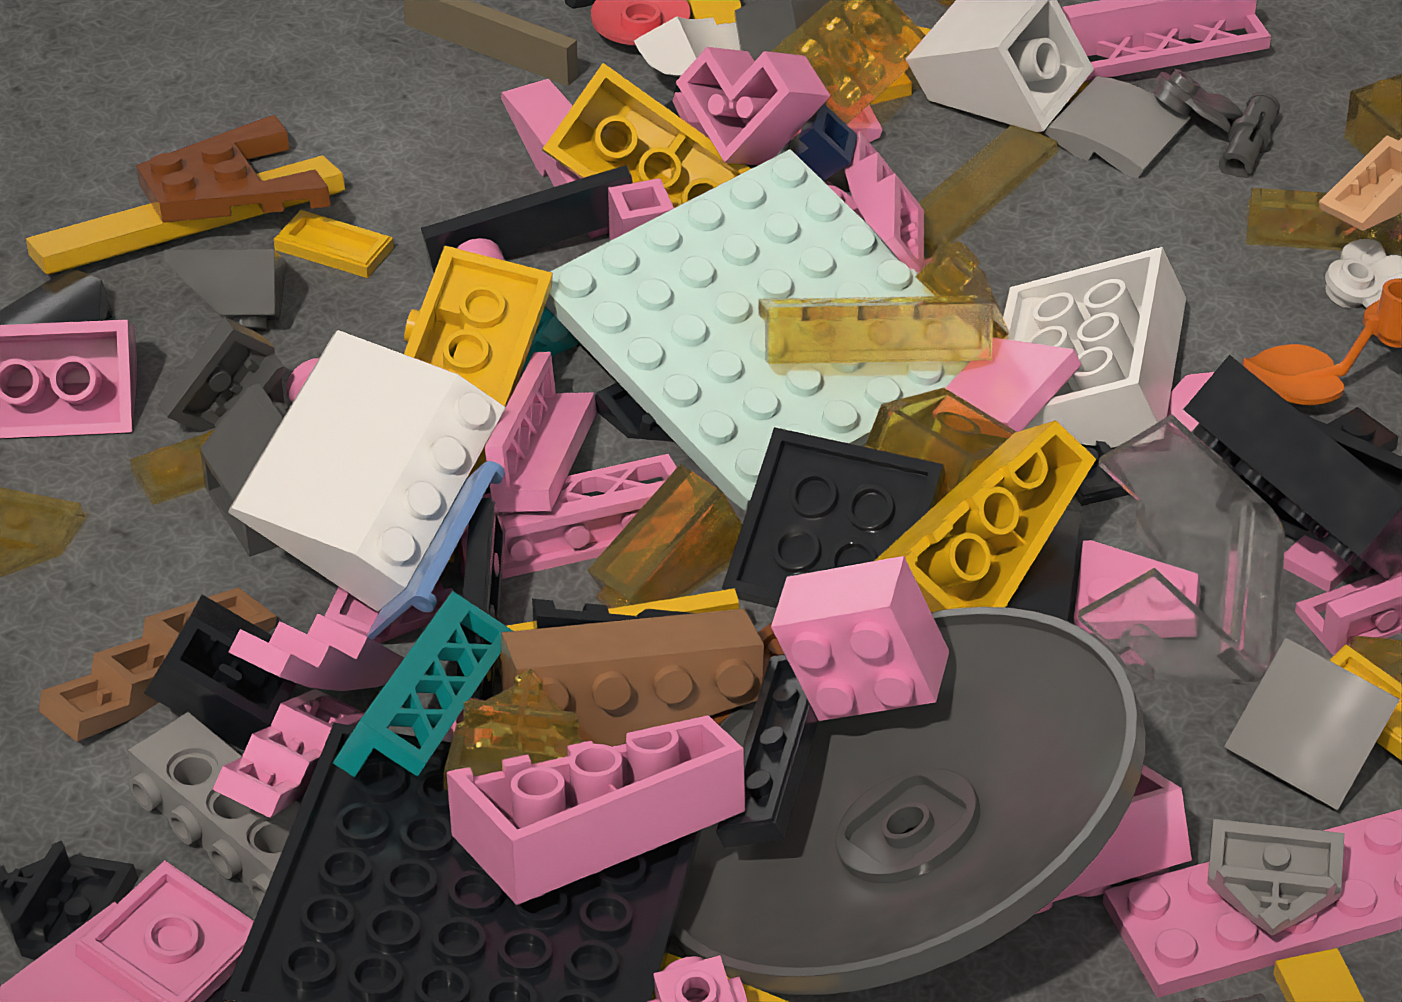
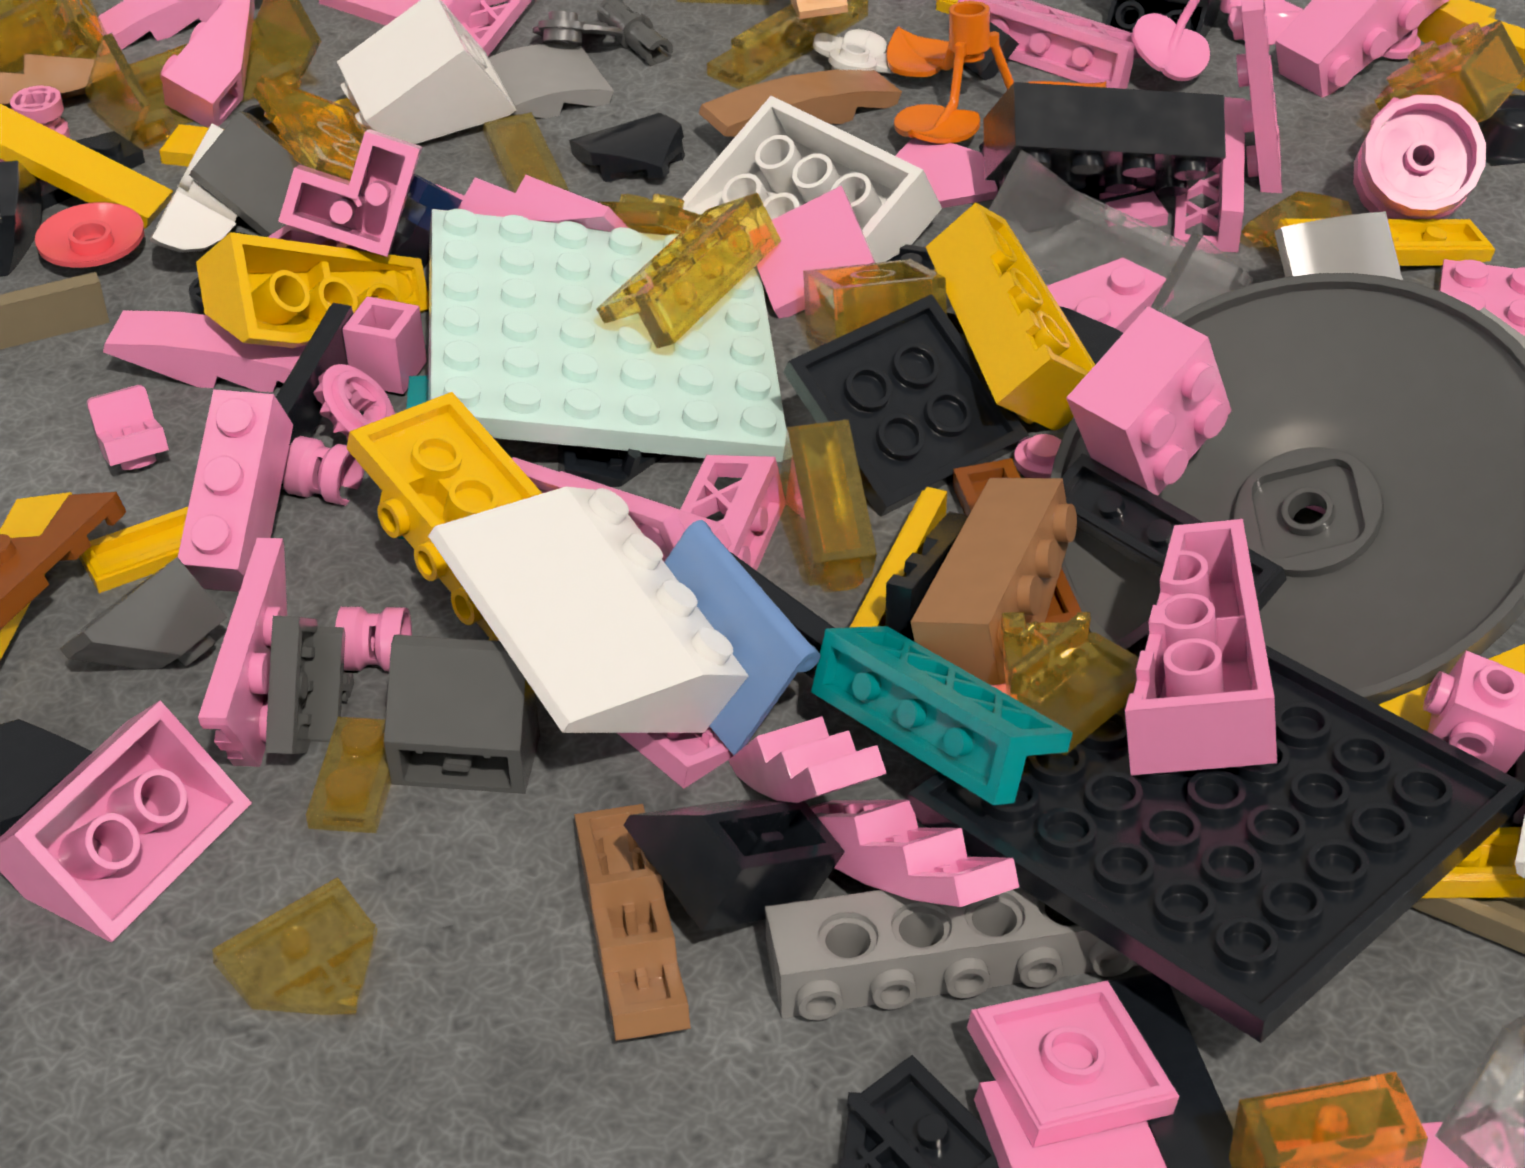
camera: 55 degrees left, 0 degrees up
(163, 349) = (240, 680): none -> bright pink wing
(381, 240) = (234, 486): none -> bright pink brick
(440, 163) = (126, 427): none -> bright pink bracket
(550, 228) = (348, 392): none -> bright pink gear
(1073, 222) = (633, 148): none -> black slope
(1255, 284) = (823, 94): none -> medium nougat slope

